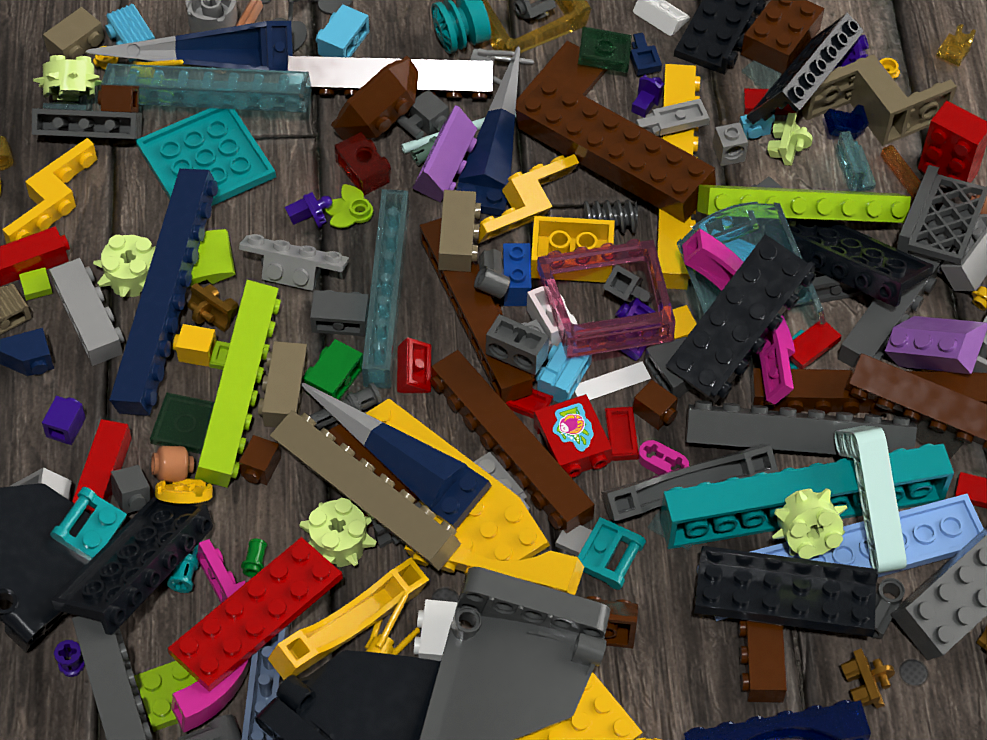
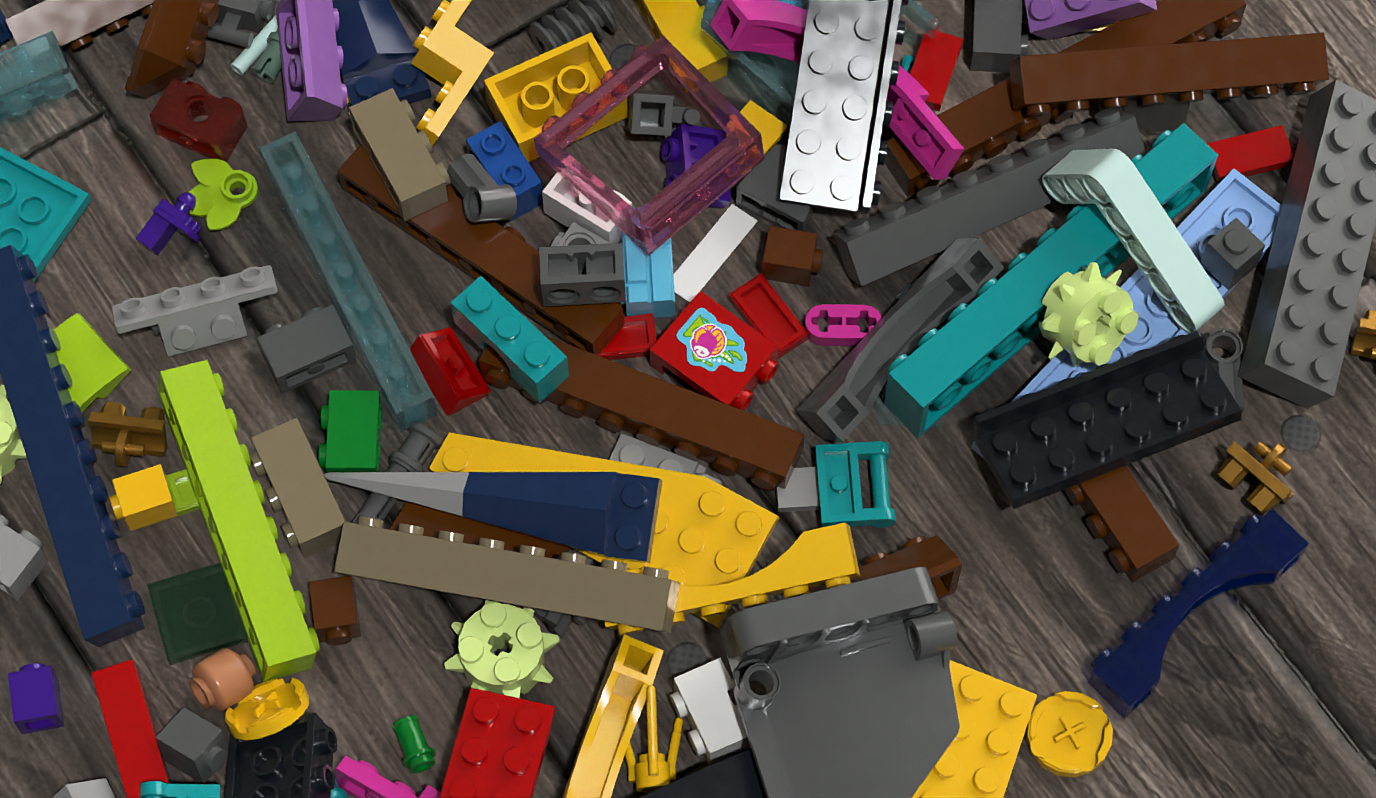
camera: 30 degrees left, 10 degrees up
(454, 360) = (526, 351): none -> teal arch
(930, 538) = (1232, 253): none -> dark grey brick

